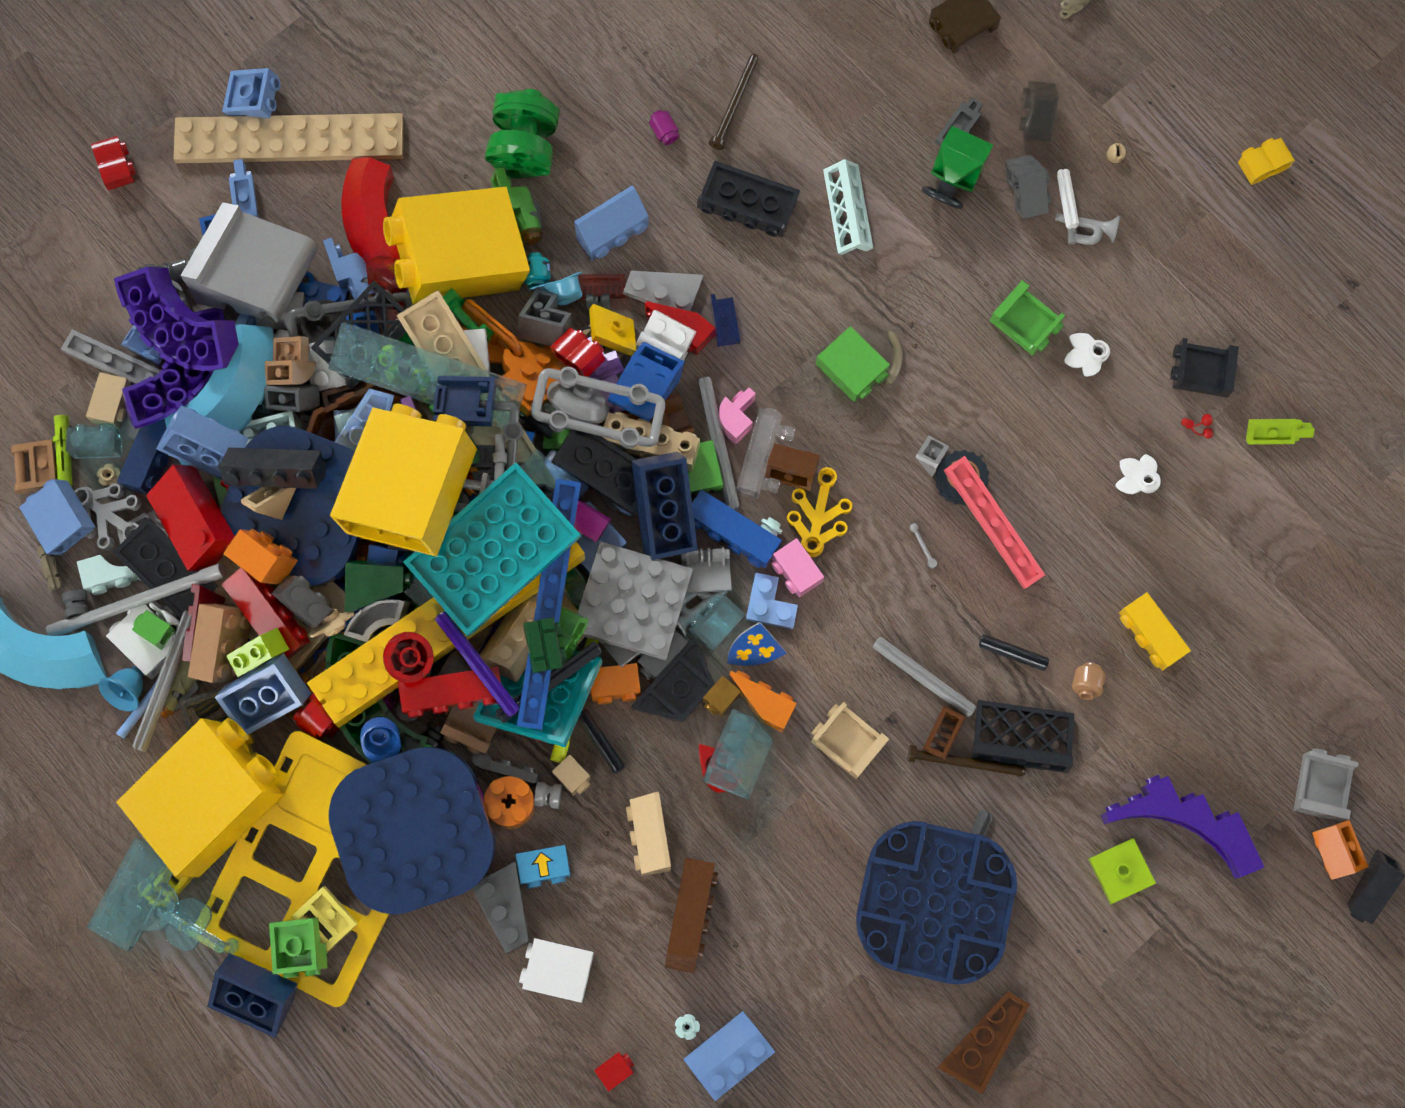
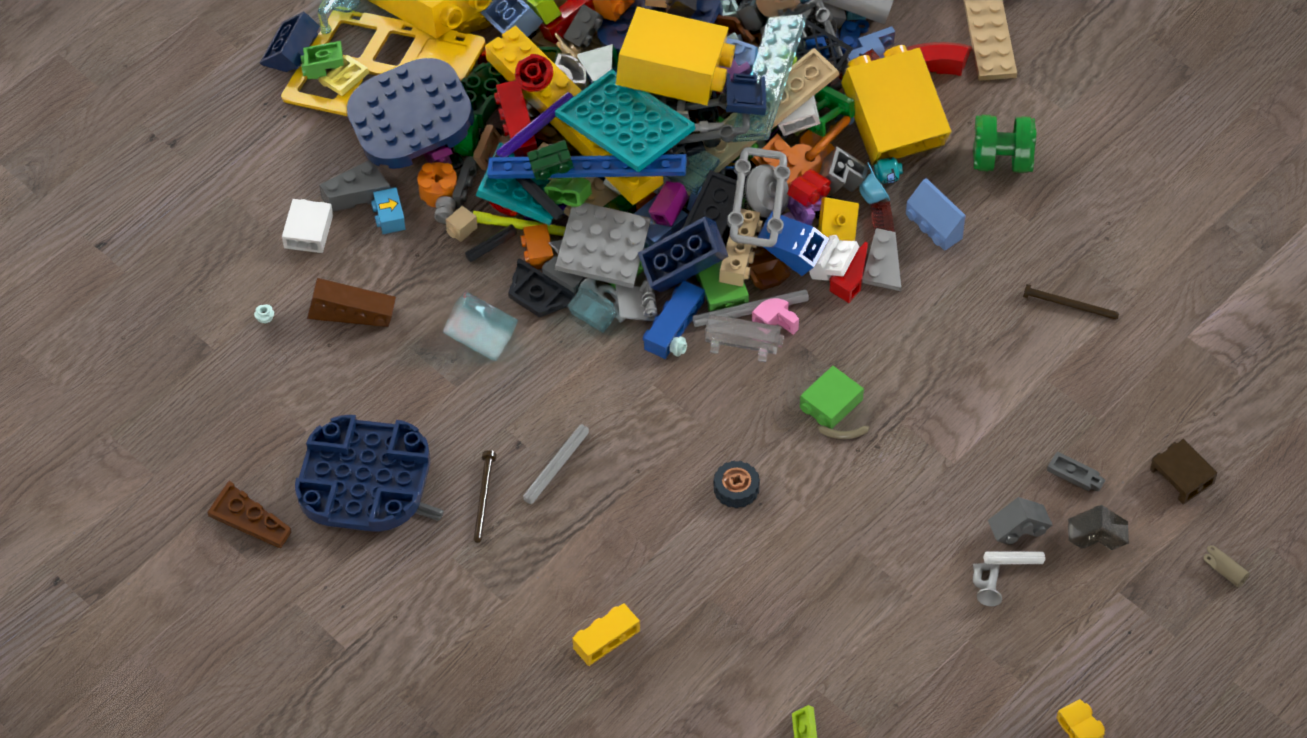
camera: 90 degrees right, 20 degrees down
(380, 739) = (477, 80): blue hat -> none
(524, 207) = (943, 154): bright green plate -> none
(602, 301) = (865, 218): pearl dark grey wheel -> none
(615, 1070) = (230, 266): red brick -> none
(649, 834) = (415, 277): tan slope -> none
(664, 127) = (1034, 251): magenta brick -> none
(721, 697) = (530, 319): pearl gold brick -> none
(724, 321) = (860, 303): clear blue panel -> none
(729, 1055) = (239, 341): medium blue slope -> none
(748, 199) = (975, 315): black bracket -> none
(755, 647) = (572, 336): blue shield -> none
(767, 610) = (609, 348): light blue plate -> none
(767, 705) = (524, 350): orange slope -> none
(792, 466) = (732, 355): reddish brown brick -> none
(797, 568) = (644, 366): bright pink brick -> none
(818, 517) = (692, 382): yellow plant -> none
(848, 740) = (499, 410): tan panel -> none
(857, 219) = (981, 391): light aqua fence -> none
(931, 454) = (754, 455): light grey slope -> none
(932, 563) = (658, 468): light grey hinge -> none
(952, 716) = (512, 486): reddish brown slope -> none
(958, 166) = (1027, 461): green piece -> none
(994, 522) = (694, 502): coral plate -> none
(1014, 652) = (581, 529): black axle -> none
(1026, 756) = (491, 530): black fence -> none
(1027, 319) = (893, 530): bright green panel -> none
(1083, 353) = (865, 579): white plate -> none
(1089, 681) = (557, 583): medium nougat head -> none
(1112, 153) = (1072, 604): tan hinge -> none
(1121, 871) = (393, 615): lime plate -> none
(1135, 474) = (752, 624): white plate -> none
(1204, 369) = (862, 673): black panel -> none
(1206, 421) = (811, 679): red piece -> none
(1225, 835) = (428, 689): dark purple arch -> none

